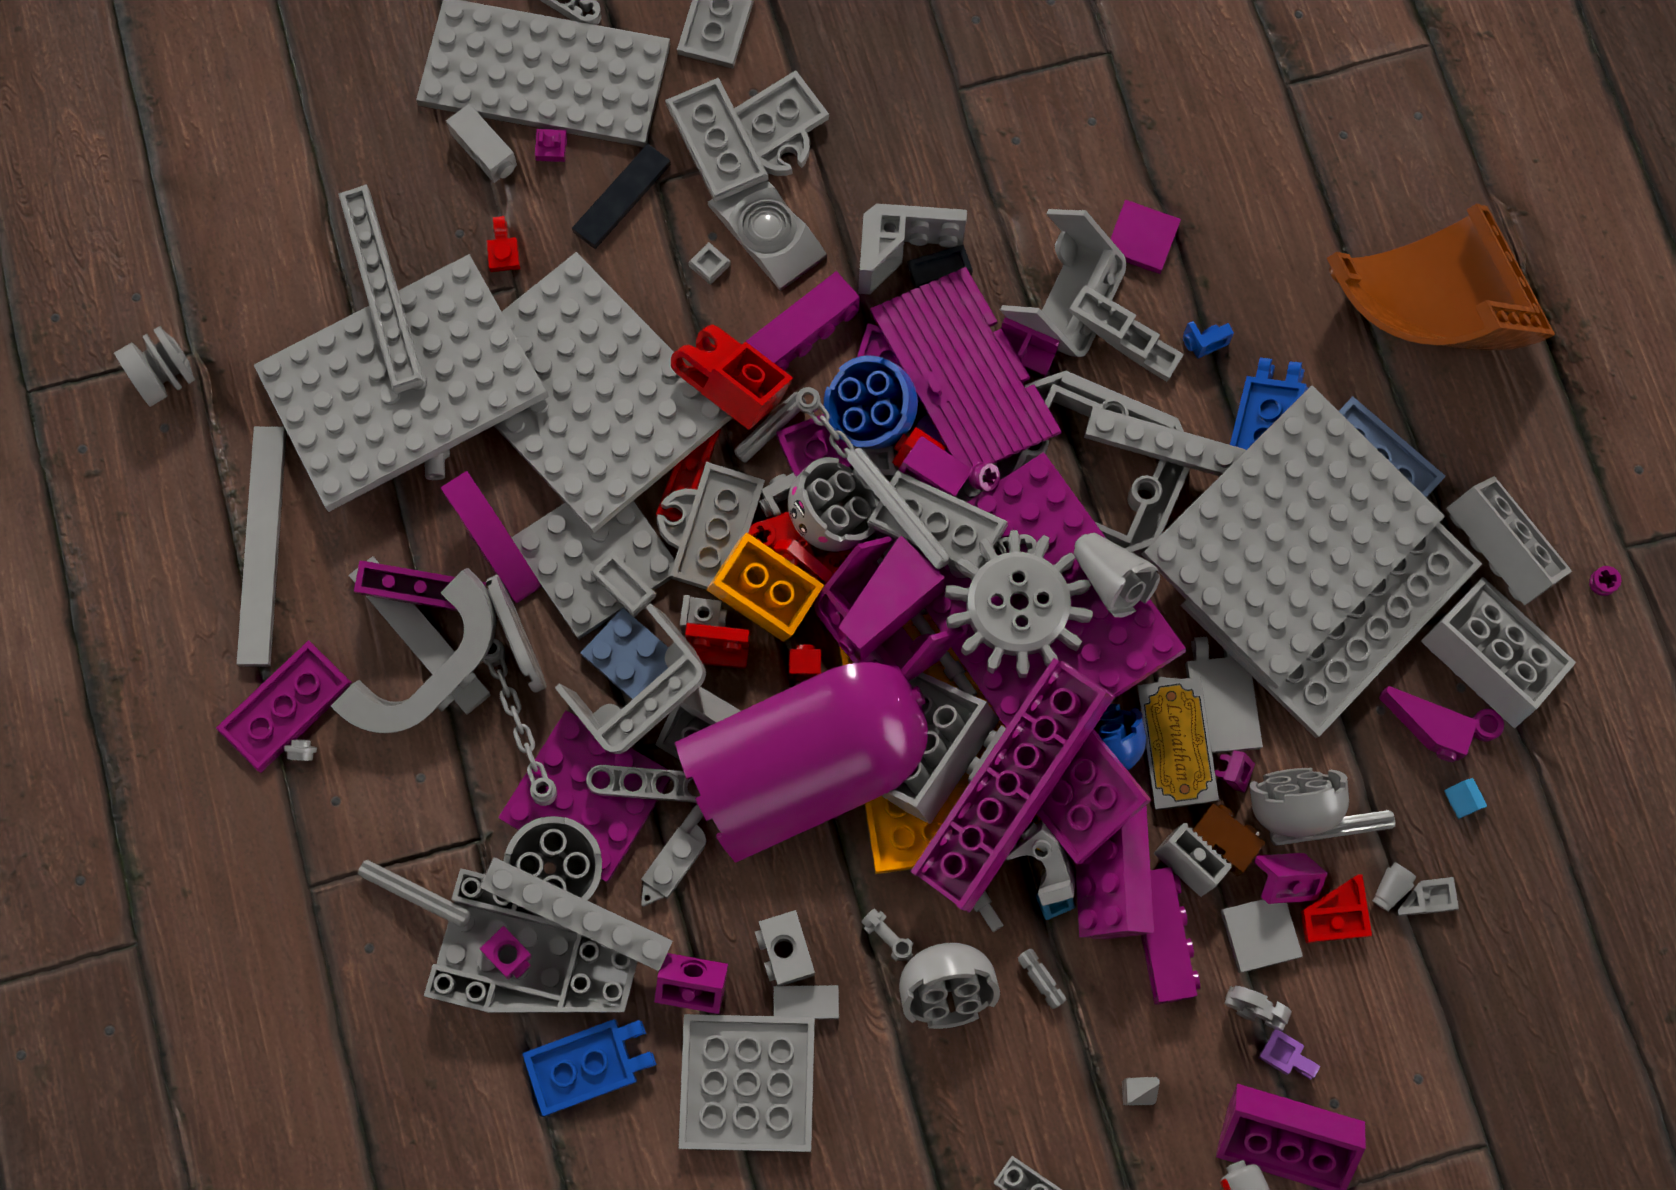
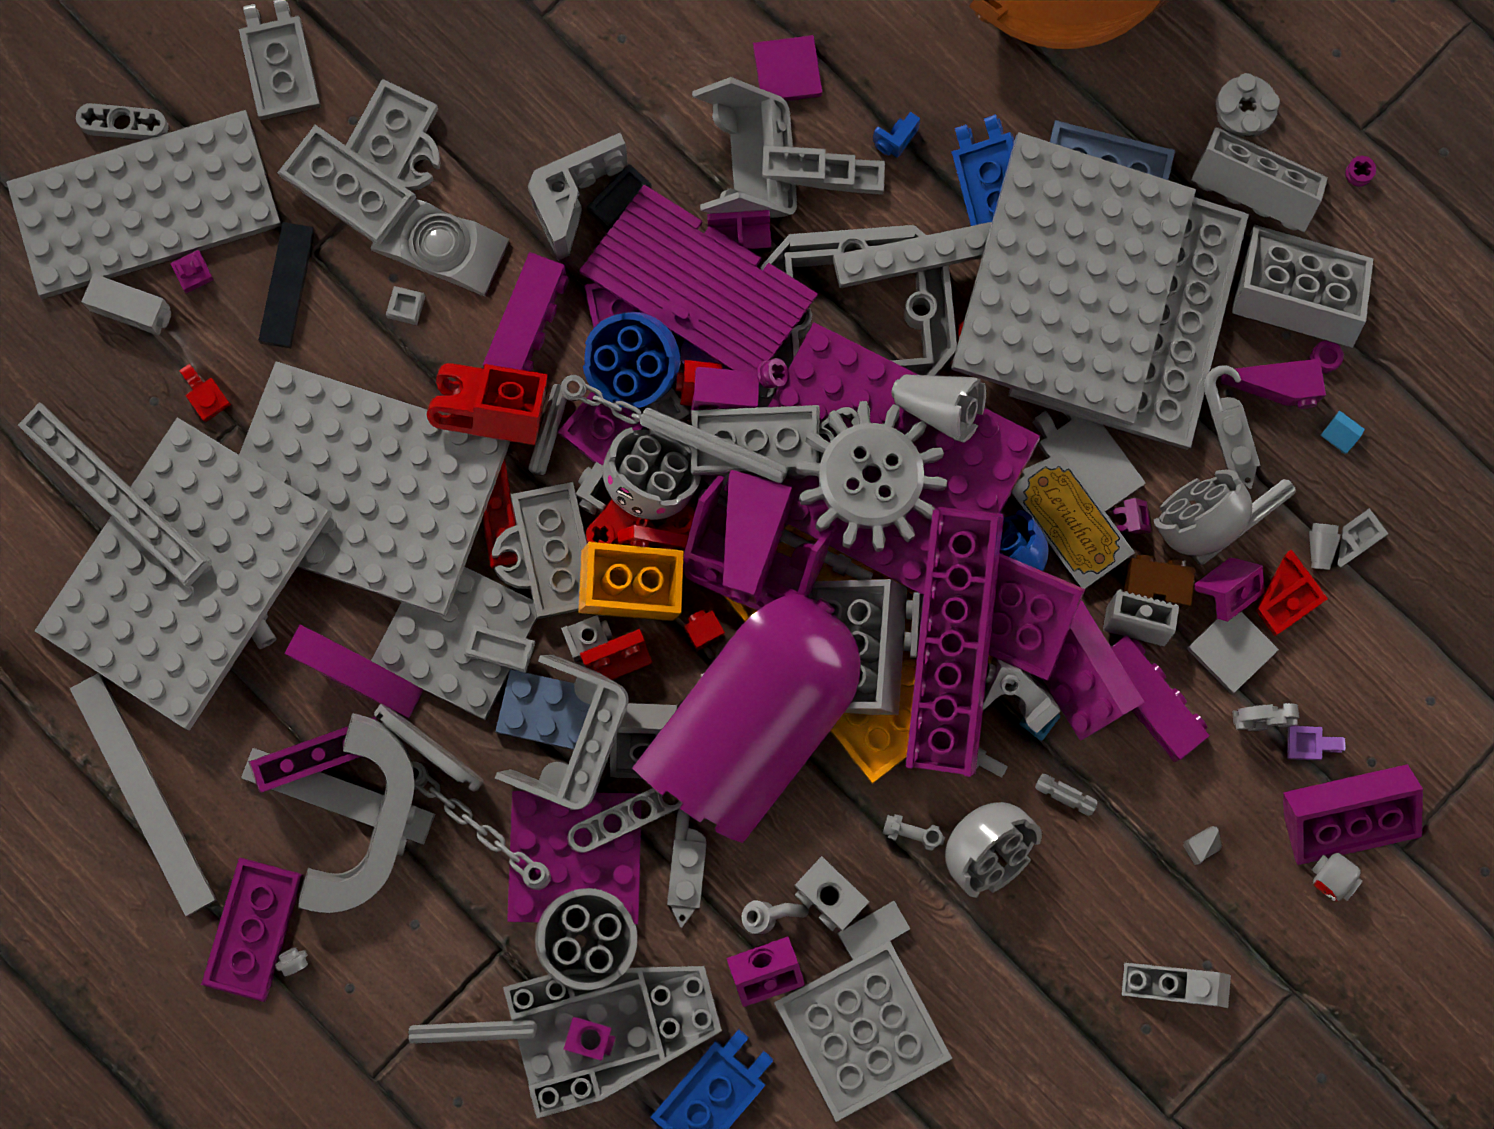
camera: 30 degrees left, 5 degrees up
(575, 913) = (632, 970): light grey plate -> none
(721, 935) = (768, 914): none -> light grey plate
(1366, 739) = (1232, 427): none -> light grey plate
(1539, 457) = (1251, 89): none -> light grey plate

